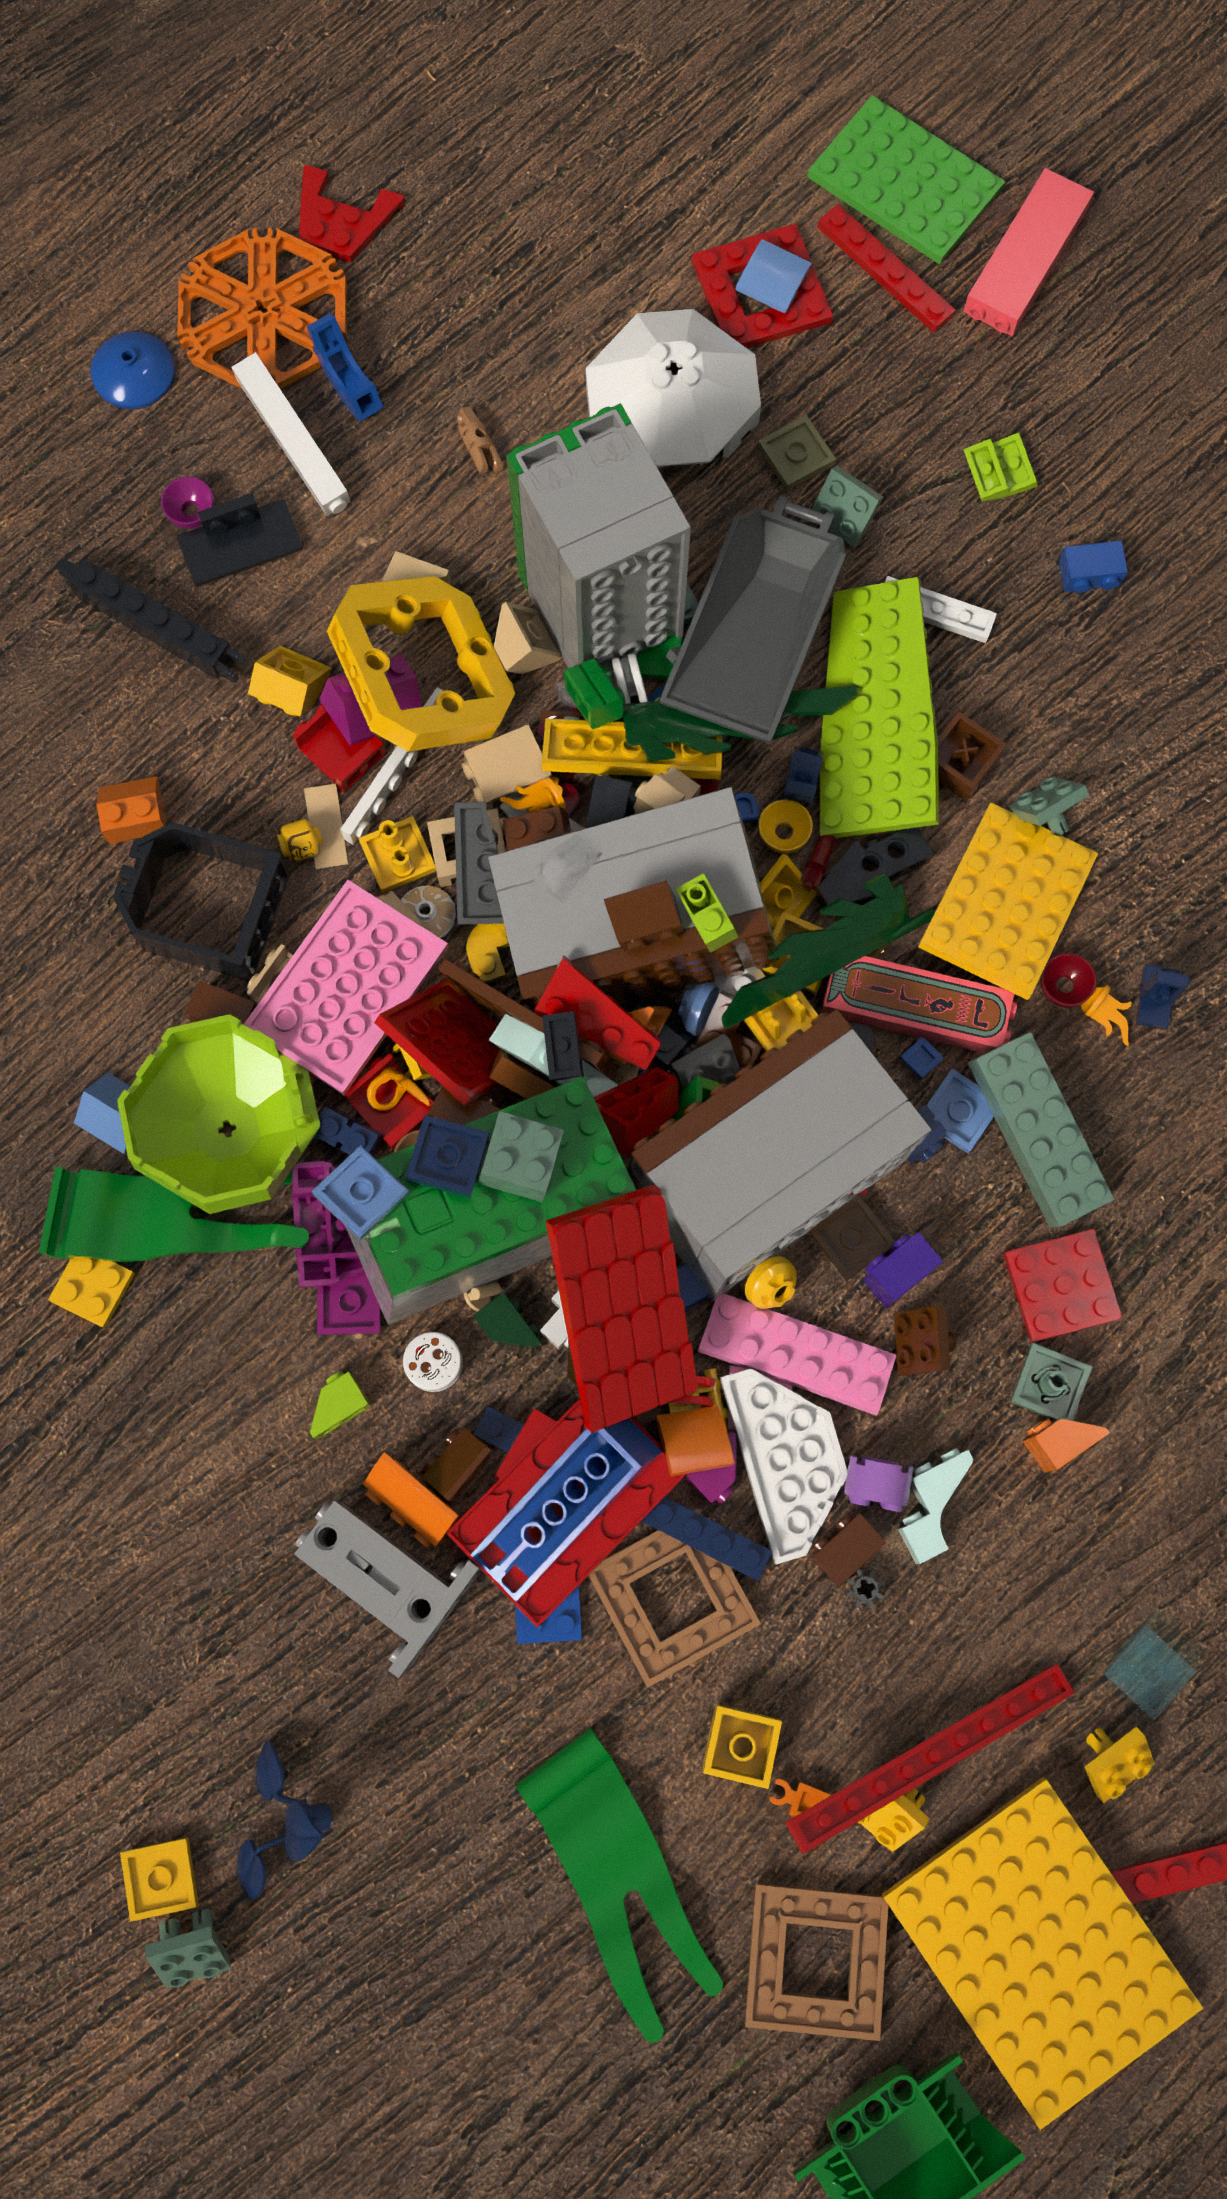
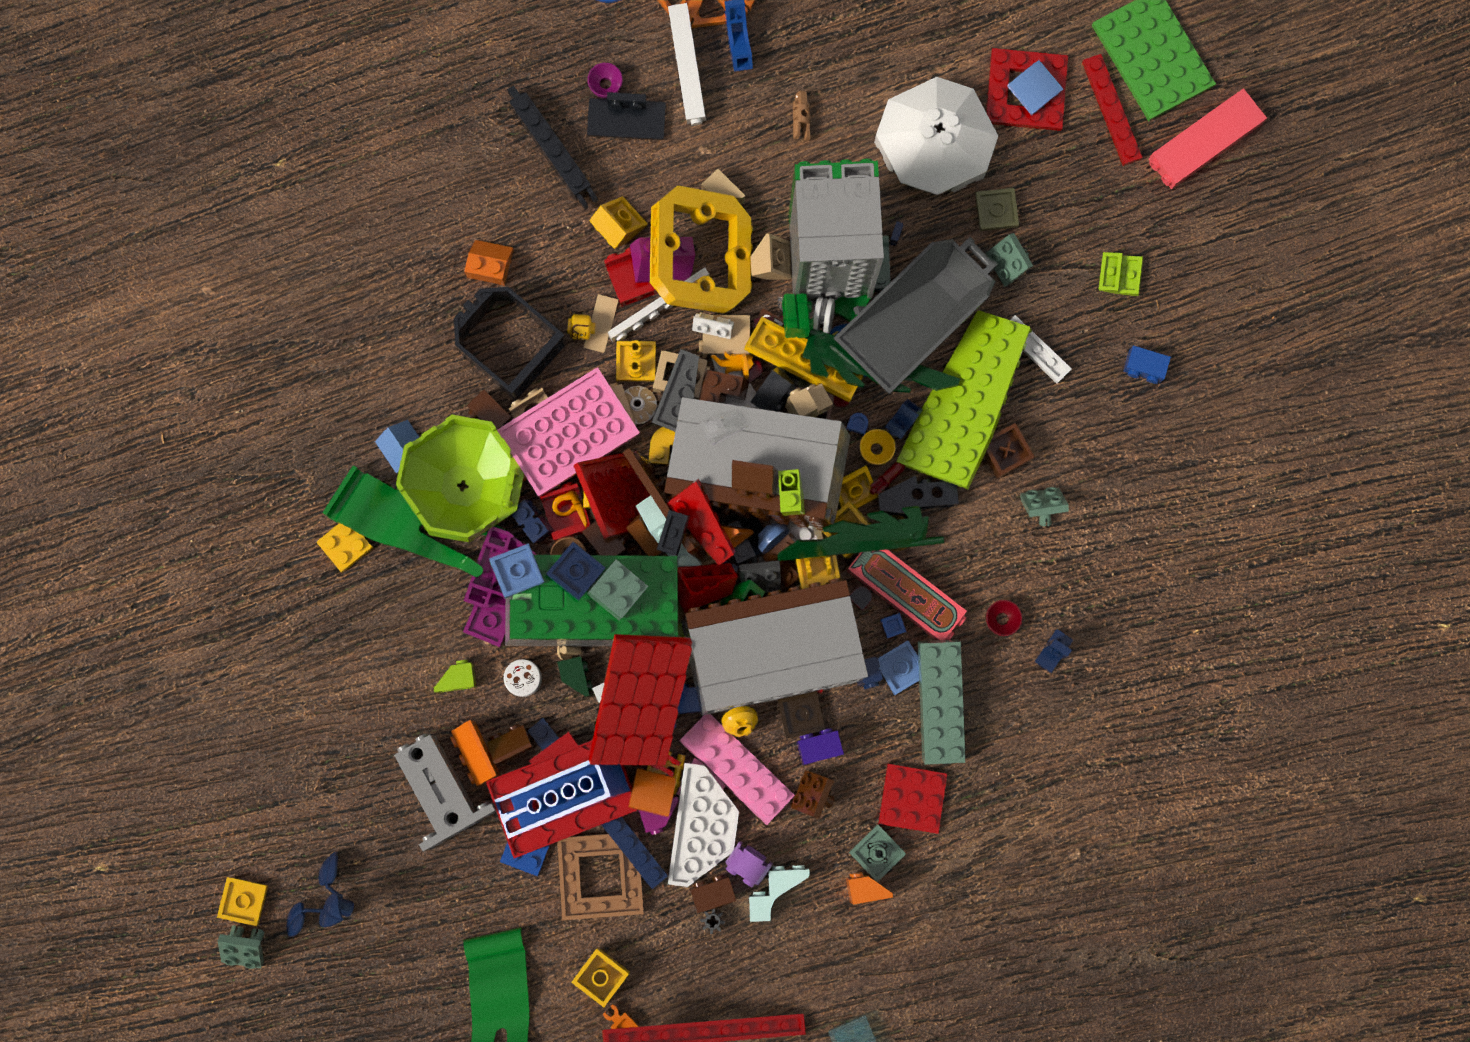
camera: 20 degrees right, 5 degrees up
(479, 760) = (705, 324): none -> white hinge
(1008, 901) = (991, 553): yellow plate -> none
(1104, 1007) = (1017, 643): light orange piece -> none

